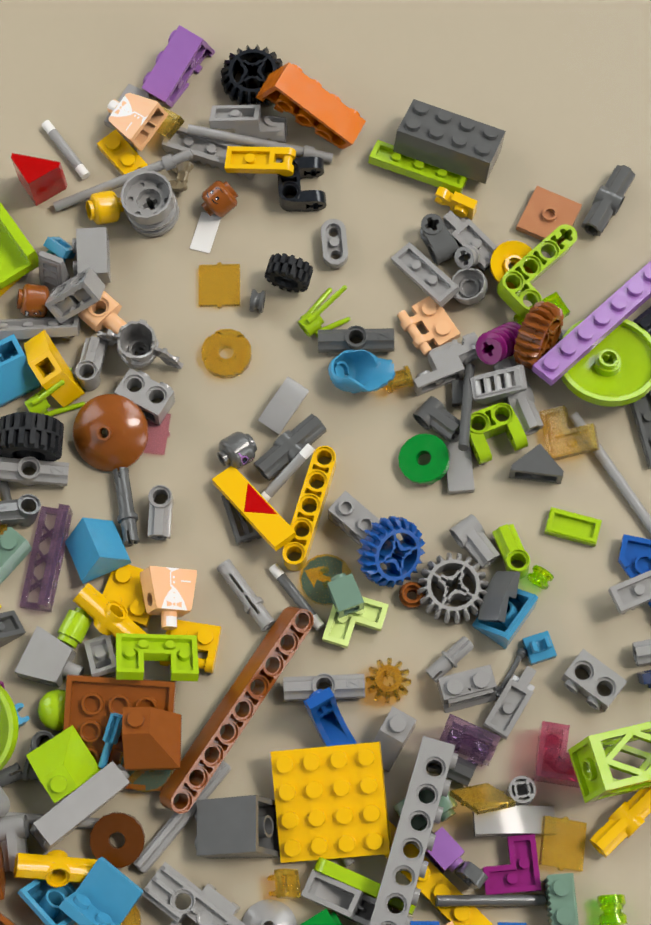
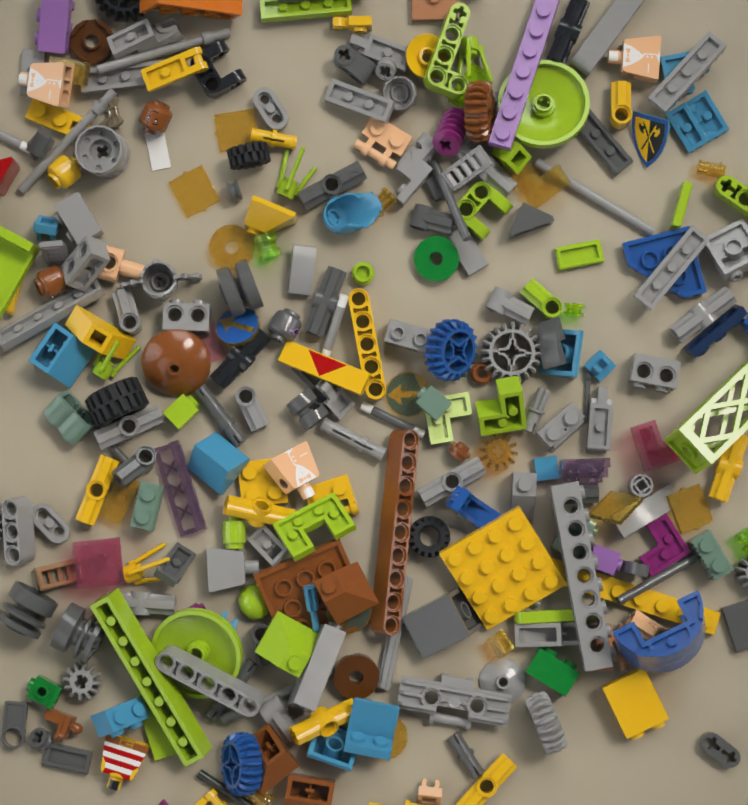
camera: 30 degrees left, 15 degrees up
(90, 482) = (182, 411): none -> lime brick
(96, 171) = (40, 144): none -> dark grey piece
(176, 460) = (239, 359): none -> black piece
(190, 427) = (239, 329): none -> blue piece
(196, 95) = (82, 32): none -> reddish brown tile
(211, 388) = (239, 288): none -> dark grey wheel
(215, 540) = (307, 409): none -> dark grey wheel
(250, 547) = (336, 400): none -> light grey plate
(261, 367) = (267, 246): none -> clear neon green wheel
(270, 716) = (426, 522): none -> black tyre
(276, 338) = (267, 217): none -> yellow slope
(292, 243) = (234, 128): none -> clear yellow piece
(336, 281) = (259, 135): none -> yellow pin
(342, 439) = (363, 273): none -> lime plate
(348, 660) = (459, 451): none -> dark orange plate
(416, 642) = (504, 412): none -> lime brick
(430, 724) = (546, 468): none -> dark azure tile
(549, 397) = (512, 160): none -> lime brick
(559, 280) = (469, 50): none -> lime plant

